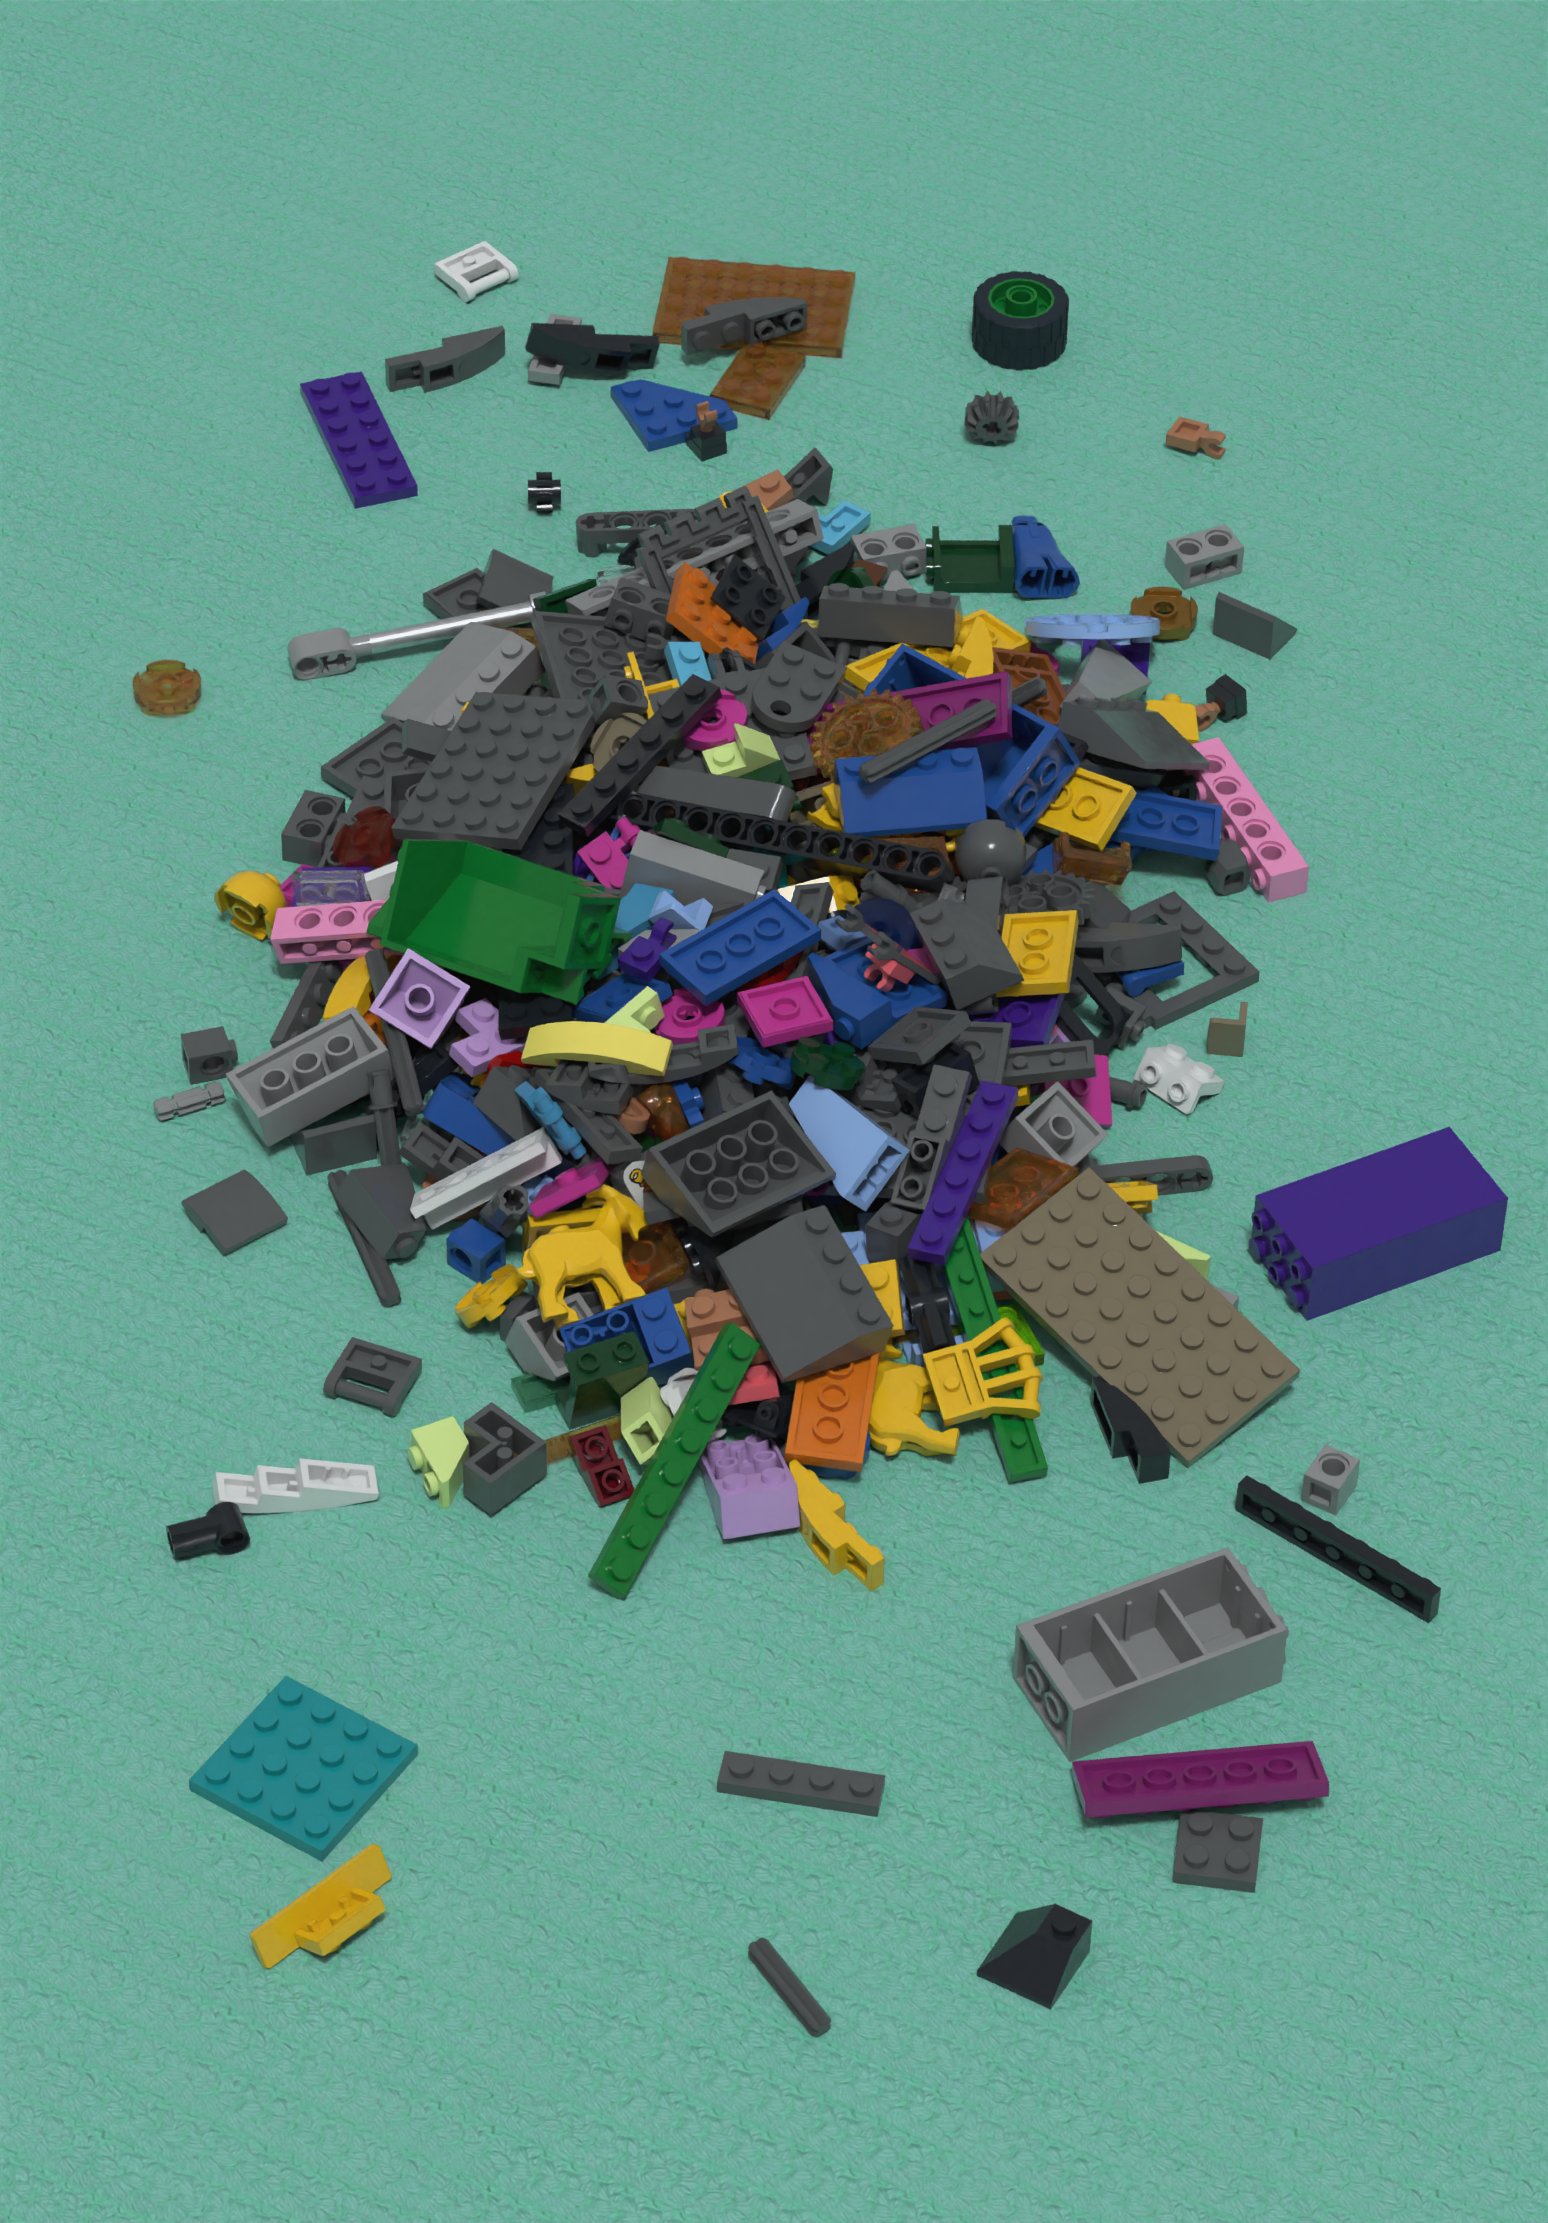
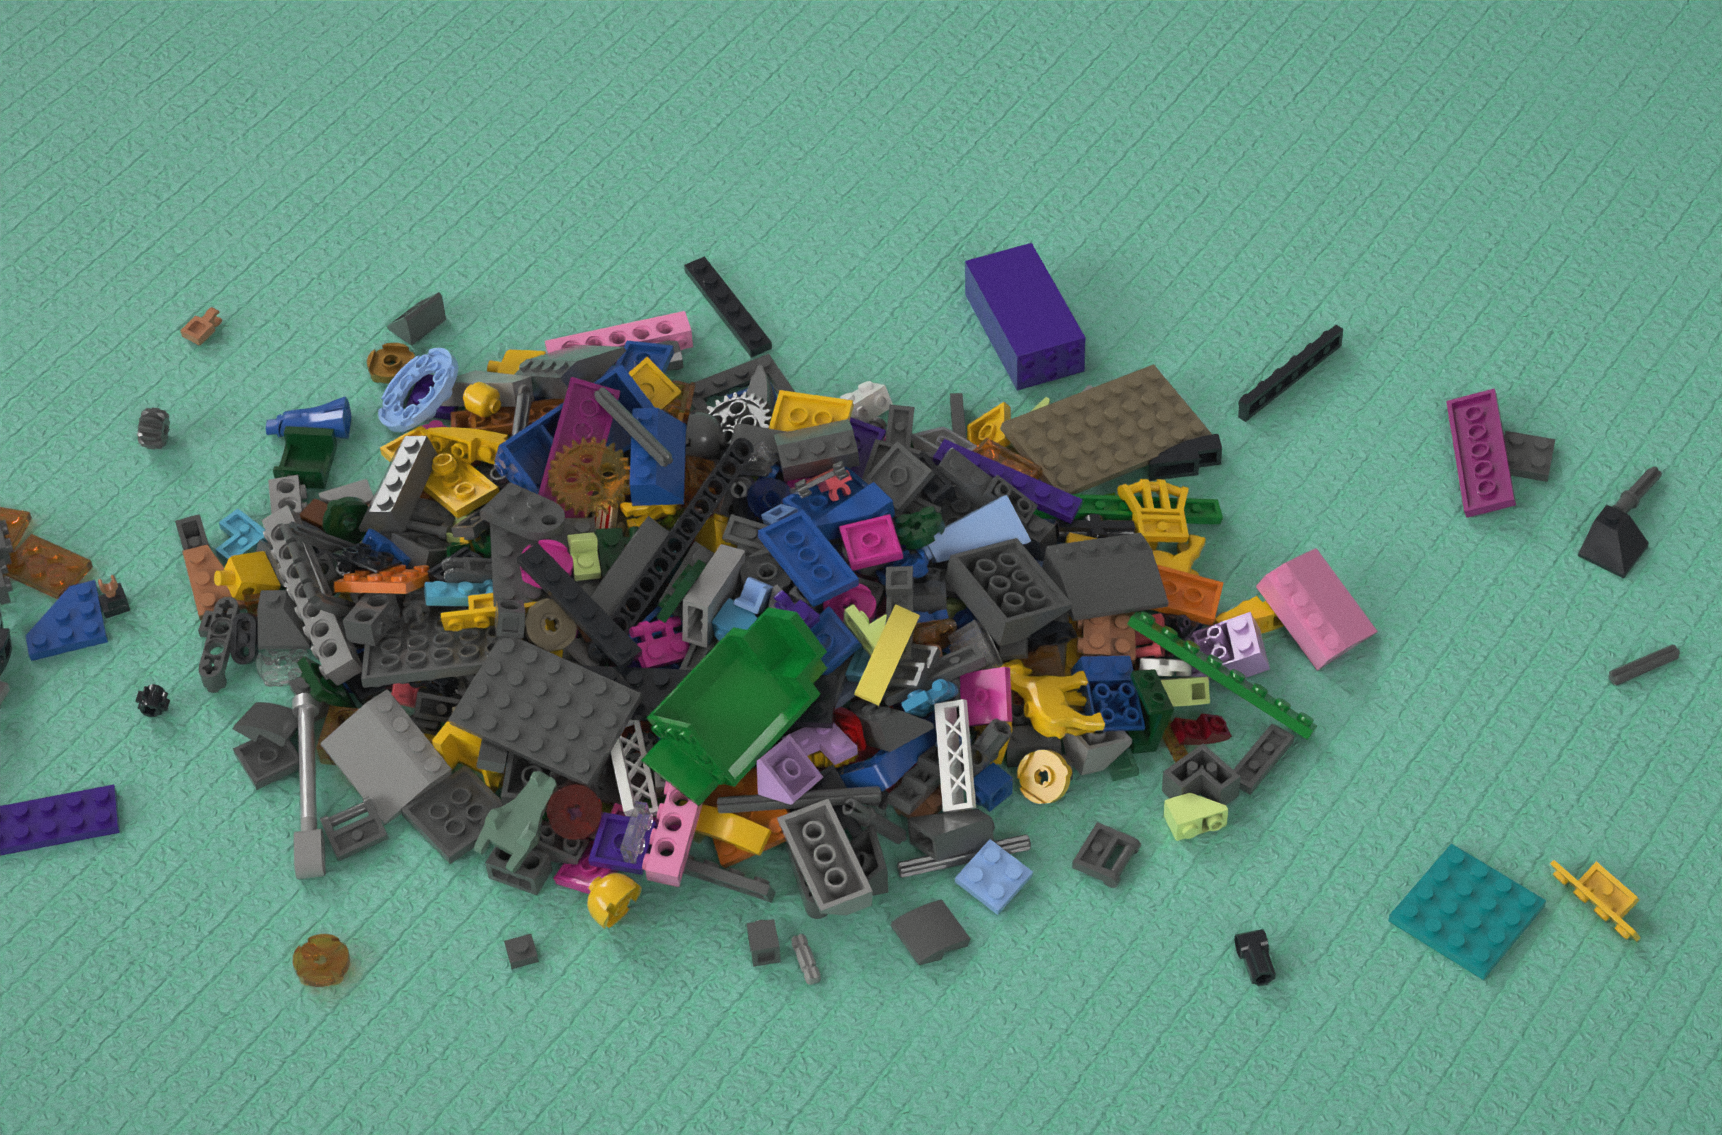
camera: 80 degrees left, 5 degrees up
(192, 852) = (521, 951): none -> dark grey plate
(305, 1488) = (1212, 905): white slope -> none
(324, 1263) = (993, 876): none -> light blue plate
(345, 790) = (518, 823): none -> sand green animal
(354, 690) = (356, 835): none -> dark grey plate
(550, 1531) = (1263, 757): none -> dark grey plate
(801, 1783) = (1477, 648): dark grey plate -> none
(826, 1568) = (1315, 608): none -> bright pink slope
(933, 647) = (444, 464): none -> yellow plate
(1020, 320) = (43, 401): black wheel -> none
(1058, 666) = (481, 399): none -> yellow head
(1138, 1977) = (1630, 498): none -> dark grey axle
(1149, 1654) = (1388, 461): light grey container -> none
(1204, 557) = (338, 335): light grey brick -> none
(1223, 699) = (495, 339): black piece -> none
(1228, 1035) = (826, 372): dark tan panel -> none
(1330, 1479) = (1233, 368): light grey brick -> none
(1352, 925) = (728, 306): none -> black plate

